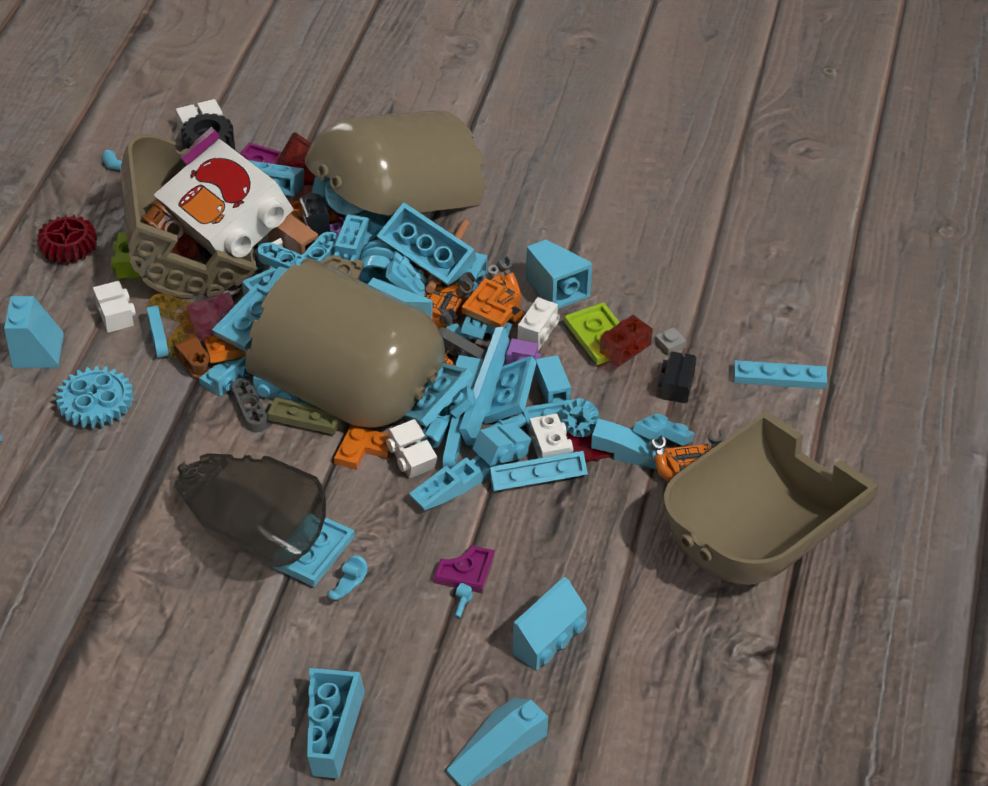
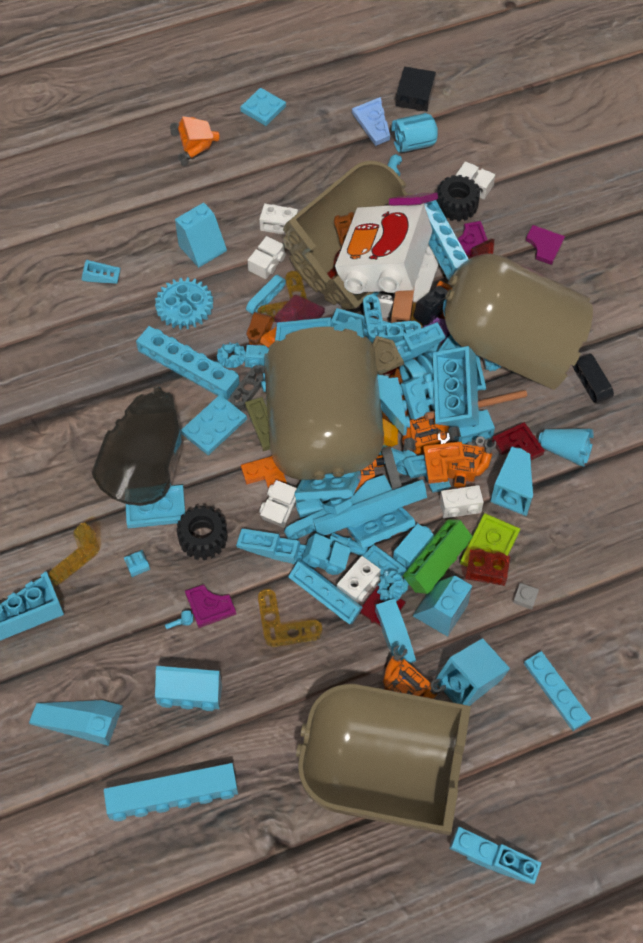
camera: 55 degrees right, 15 degrees up
(42, 145) = (372, 120): none -> light blue wing
(44, 95) = (415, 88): none -> black brick
(67, 239) = (301, 186): dark red gear -> none
(78, 272) = (275, 217): none -> white brick
(99, 122) = (415, 132): none -> medium azure cylinder
(170, 432) = (163, 354): none -> medium azure brick
(193, 404) = (233, 361): none -> medium azure gear
(263, 441) = (213, 425): none -> medium azure plate
(311, 626) = (87, 549): none -> clear yellow beam
(317, 117) = (545, 243): none -> magenta tile
(354, 574) = (152, 543): medium azure piece -> none
(363, 600) = (136, 563): none -> medium azure tile
(384, 510) = (198, 519): none -> black tyre
(504, 171) = (593, 378): none -> black beam
(513, 248) = (519, 437): none -> dark red plate
(521, 349) = (423, 512): medium lavender brick -> none
(546, 528) = (281, 631): none -> clear yellow beam
(551, 220) = (568, 443): none -> medium azure cone
(580, 367) = (437, 556): none -> bright green brick
(634, 388) = (444, 604): none -> medium azure slope
(645, 705) = (170, 792): none -> medium azure brick
(659, 425) = (430, 642): medium azure plate -> none
(677, 377) = (489, 623): black brick -> none
(716, 409) = (472, 673): none -> medium azure slope
(907, 501) = (494, 856): none -> medium azure slope

